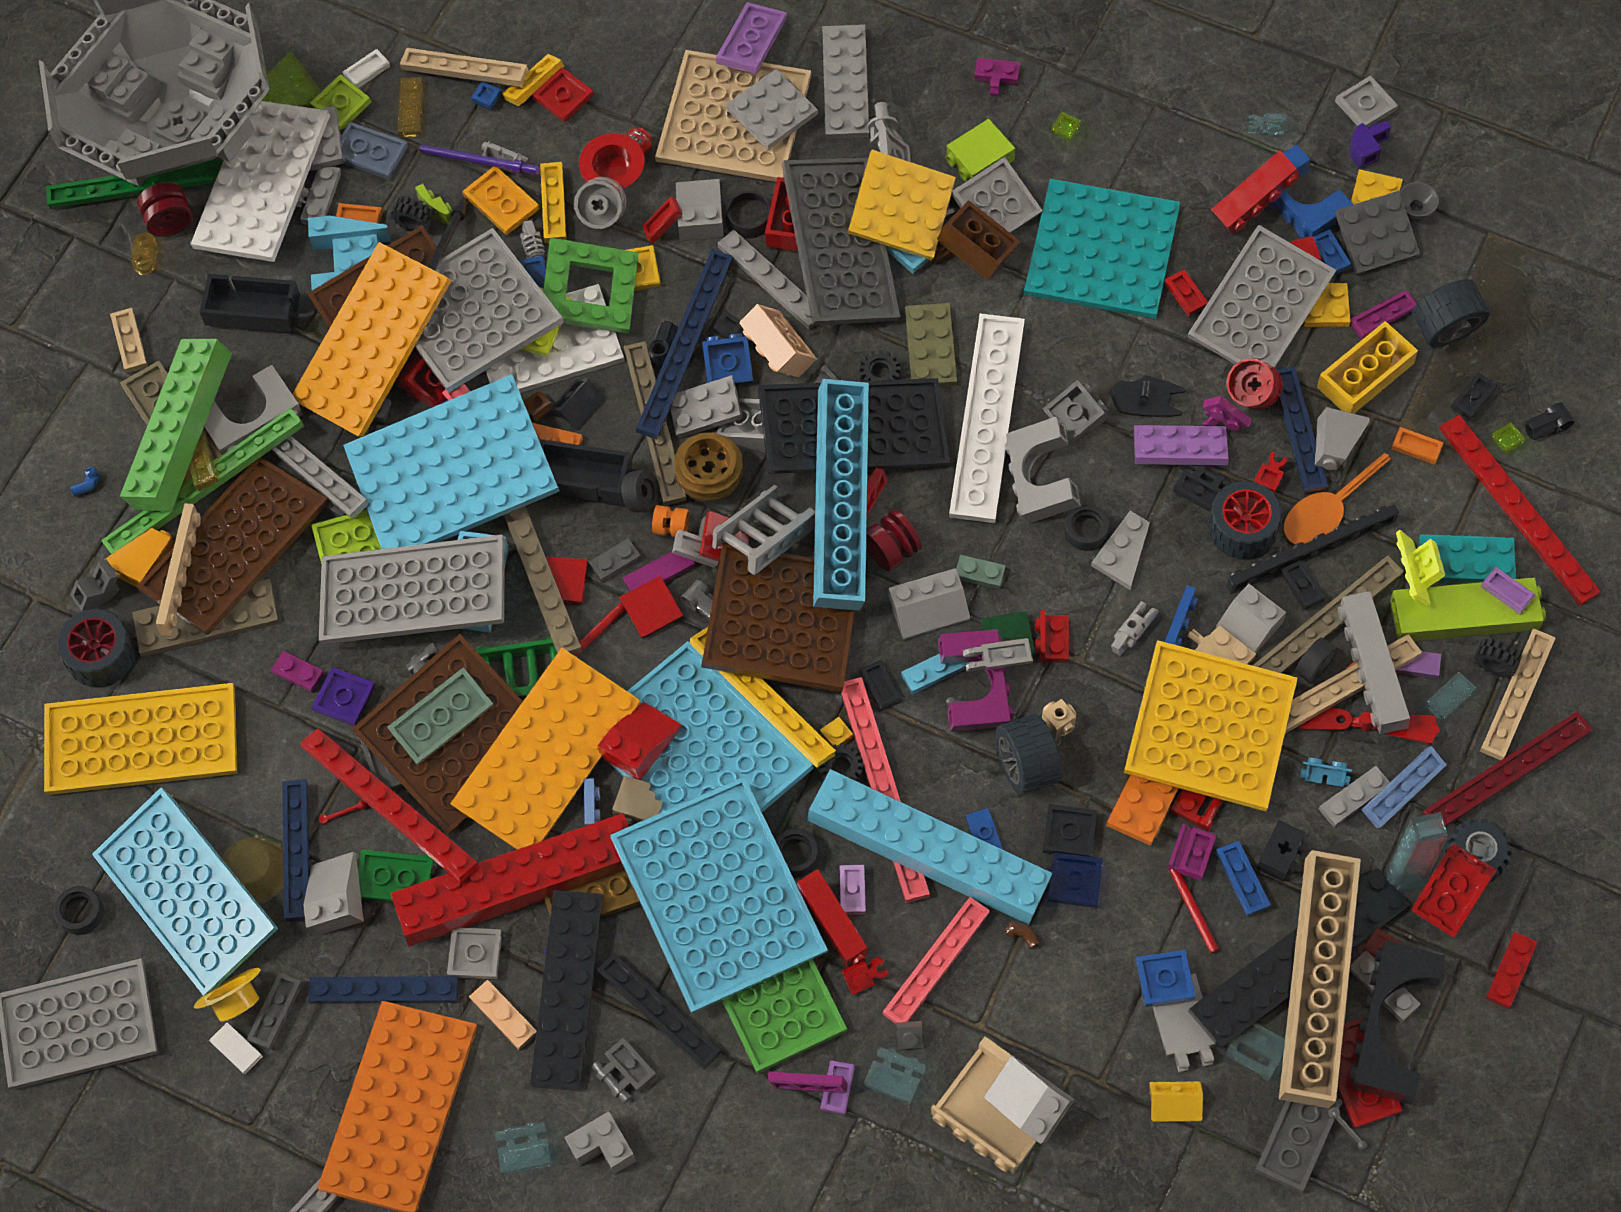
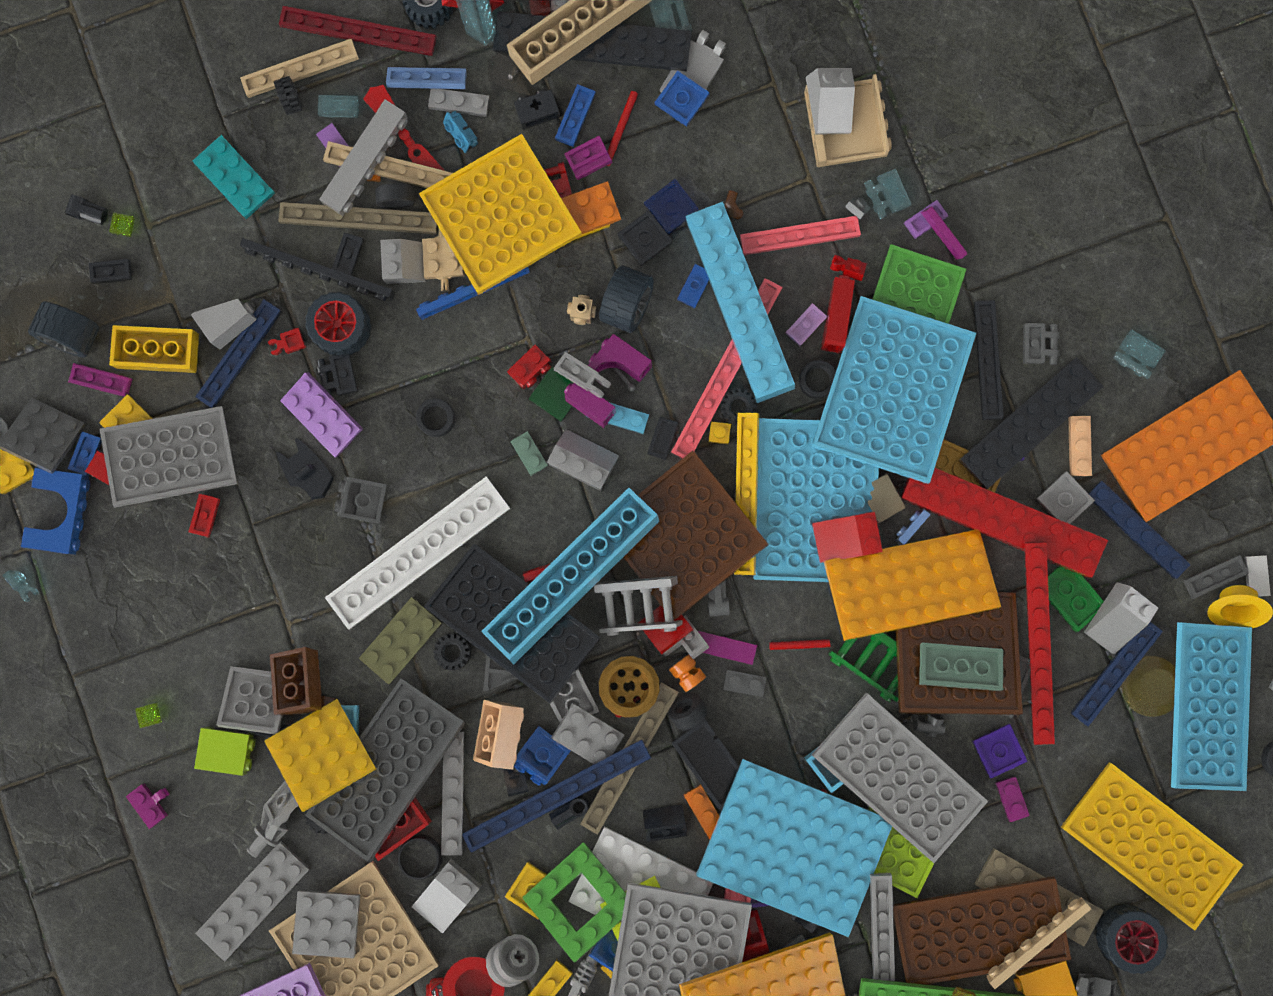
camera: 135 degrees left, 20 degrees up
(324, 819) = (1079, 678): red hinge -> none
(537, 405) = (693, 845): reddish brown plate -> none
(542, 581) = (809, 704): dark tan plate -> none
(569, 578) = (790, 701): red tile -> none
(601, 1137) = (1090, 313): light grey brick -> none
(651, 607) = (753, 626): red tile -> none
(662, 219) = (482, 907): red tile -> none
(892, 540) = (565, 520): dark red wheel -> none
(1024, 449) = (421, 505): light grey arch -> none
(1102, 248) = (220, 602): teal plate -> none
(1123, 549) = (428, 382): light grey wing -> none
(1132, 628) = (486, 321): light grey hinge -> none
(1176, 1101) = (743, 31): yellow panel -> none
(1221, 410) = (274, 404): magenta plate -> none
(1245, 375) = (246, 401): red wheel -> none
(1256, 192) = (85, 536): red brick -> none
(1324, 510) = (285, 290): orange piece -> none
(1417, 445) = (179, 275): orange tile -> none
(1421, 565) = (268, 189): neon yellow bracket -> none
(1463, 612) = (270, 143): lime brick -> none
(1507, 590) = (236, 125): medium lavender tile -> none
(1520, 510) = (167, 177): red plate -> none

